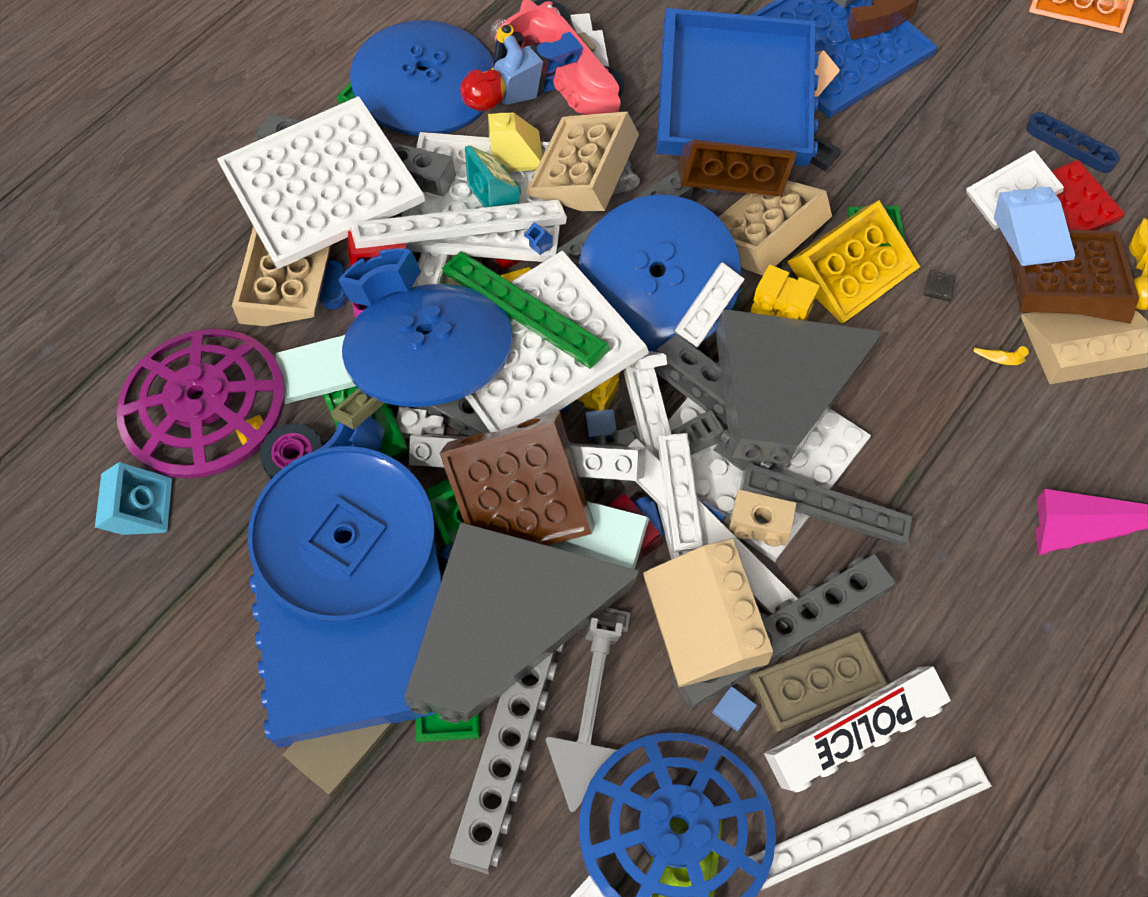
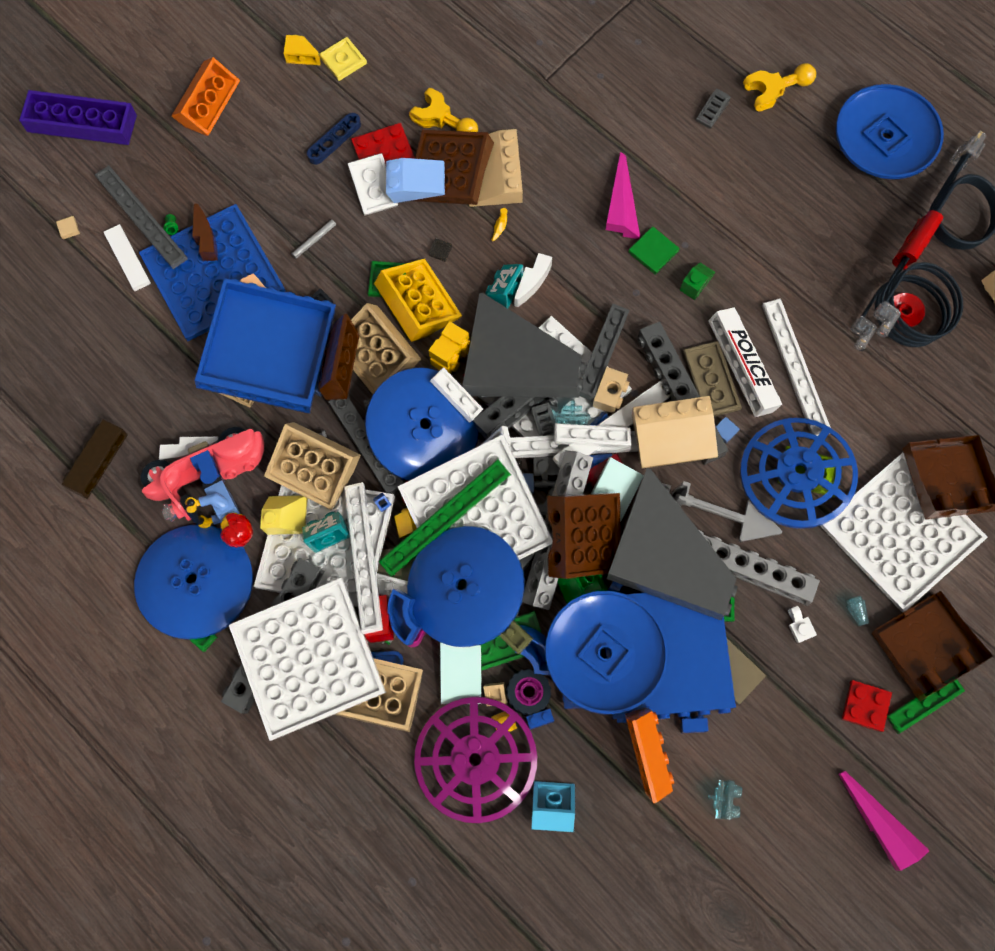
camera: 80 degrees left, 10 degrees up
(148, 743) = (723, 800): none -> clear light blue hips
(195, 611) = (649, 753): none -> orange slope
(249, 688) = (696, 725): none -> blue piece
(255, 474) = (539, 719): none -> blue piece
(293, 412) = (496, 692): none -> tan plate
(411, 851) = (800, 628): none -> white plate
(703, 458) = (581, 419): none -> clear light blue hips
(900, 368) = (505, 284): none -> teal slope
(913, 139) = (313, 239): none -> light grey bar
(923, 403) = (533, 279): none -> white slope
(989, 644) = (696, 280): none -> green slope
(1023, 576) = (654, 250): none -> green tile

